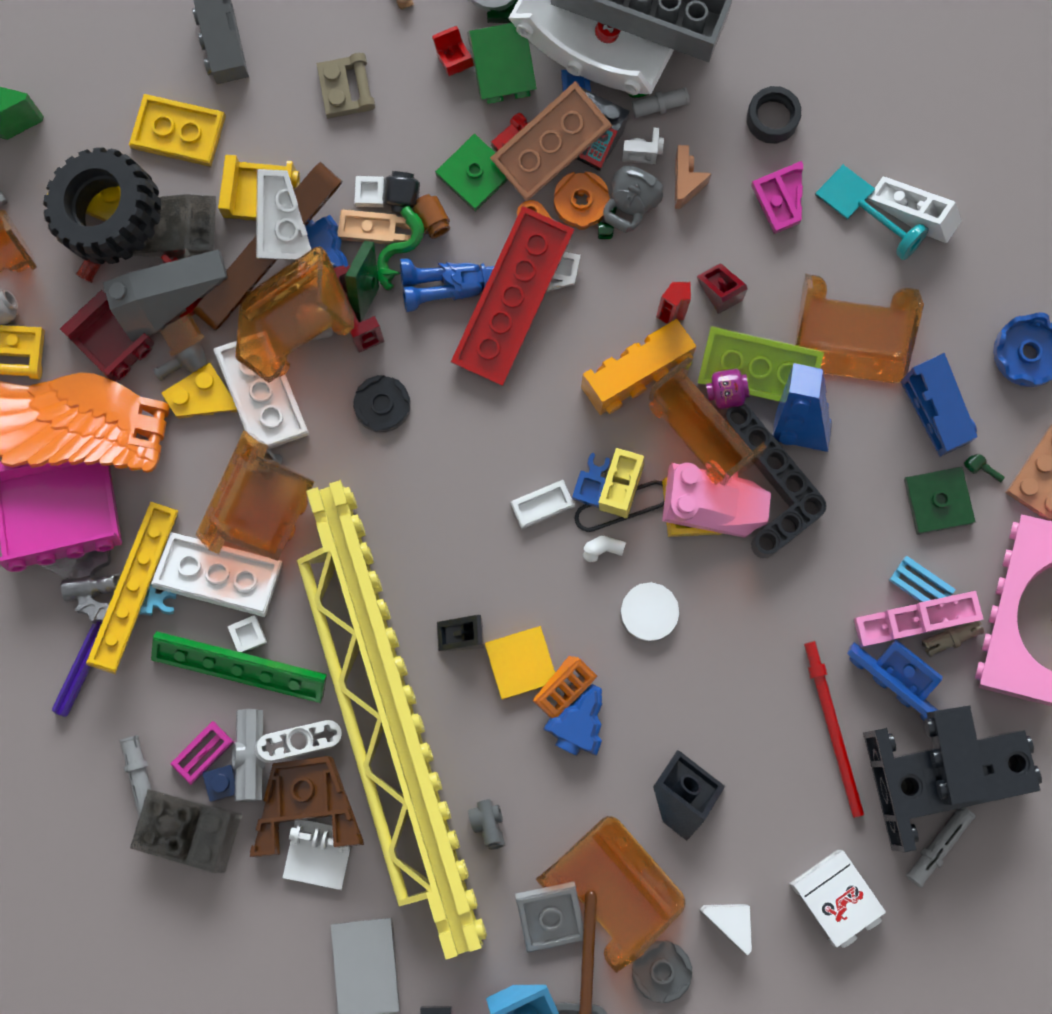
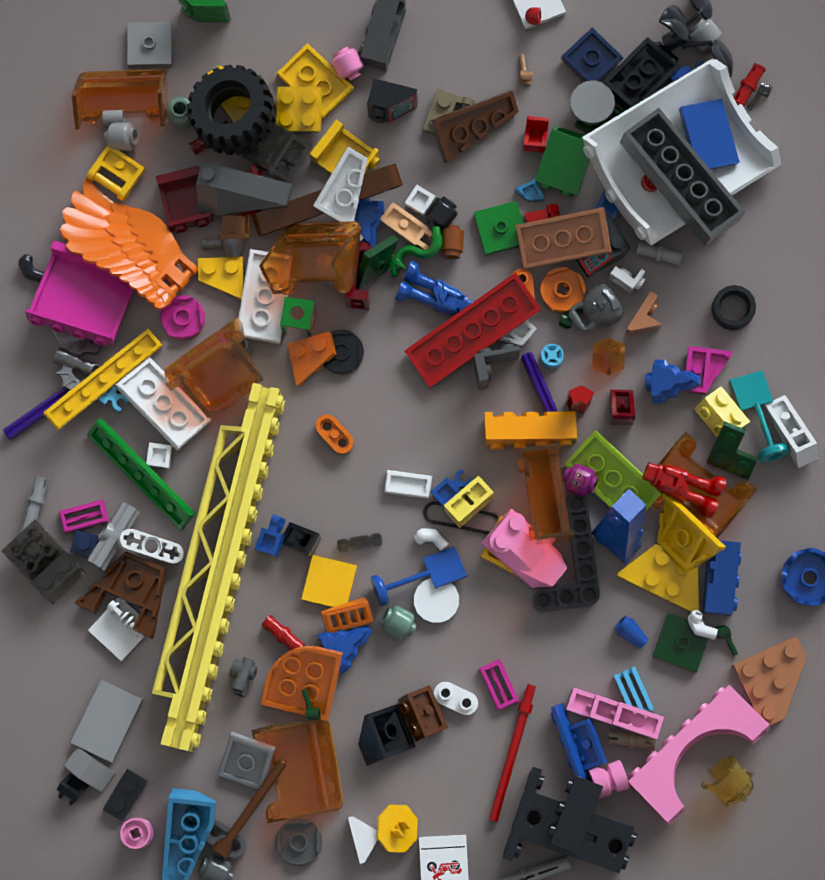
camera: 35 degrees right, 0 degrees up
(45, 246) = (177, 112): none -> sand green head
(178, 166) = (299, 109): none -> yellow plate
(183, 468) = (183, 318): none -> dark pink tile
(201, 90) = (347, 63): none -> bright pink head
(273, 101) = (390, 101): none -> black slope
(322, 394) = (306, 322): none -> green piece
(350, 426) = (310, 355): none -> orange wing
(376, 77) = (465, 126): none -> reddish brown wing
(428, 654) = (270, 539): none -> blue plate
(429, 497) = (335, 434): none -> orange plate
(483, 116) = (530, 192): none -> dark azure tile
(505, 750) = (282, 634): none -> red pin
(527, 598) = (359, 542): none -> clear smoke axle
(545, 318) = (487, 357): none -> dark grey bracket
(560, 789) = (301, 669): none -> orange plate
(592, 819) = (311, 713): none -> dark green hand
(614, 270) = (549, 353): none -> medium azure wheel
(616, 313) = (538, 382): none -> dark purple axle
(624, 661) = (398, 622): none -> sand green head
(634, 571) = (441, 567): none -> blue piece
(673, 241) = (608, 356): none -> clear orange panel
(711, 745) = (422, 713): none -> reddish brown bracket
(737, 706) = (455, 698): none -> white plate
(756, 229) = (668, 381): none -> blue rock
(762, 889) = (397, 828): none -> yellow piece
(767, 673) = (491, 667): none -> dark pink tile
(830, 234) = (720, 408): none -> light yellow bracket
(832, 330) = (675, 483): none -> red piece
(864, 273) = (726, 453): none -> dark green plate
(877, 382) = (685, 535): none -> yellow wing
(878, 520) = (631, 632): none -> blue cone
(879, 440) = (664, 577): none -> yellow wing
(950, 473) = (698, 626): none -> white arm
(959, 690) = (610, 778): none -> bright pink wheel

